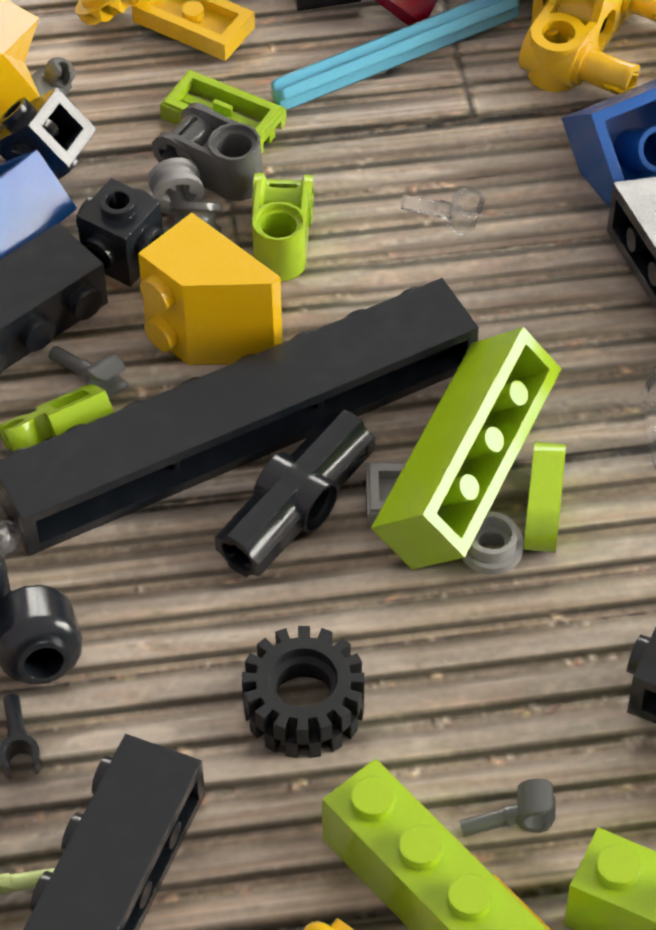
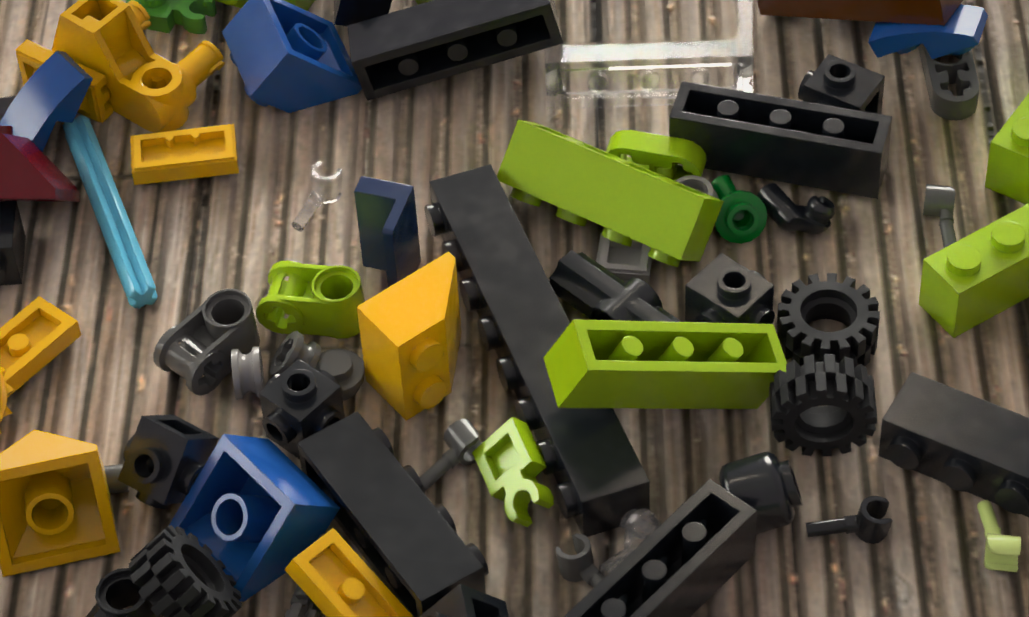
camera: 80 degrees left, 5 degrees down
(148, 676) = (800, 412): none -> black tyre
(163, 505) = (664, 364): none -> lime brick
(225, 100) = (139, 365): lime tile -> none
(307, 580) = (729, 294): none -> black brick
(344, 258) = (388, 227): none -> panel
(474, 594) = (742, 212): none -> green plate
(480, 89) = (184, 154): none -> yellow plate
(486, 650) = (794, 217): none -> black arm
(584, 611) = (784, 138): none -> black brick

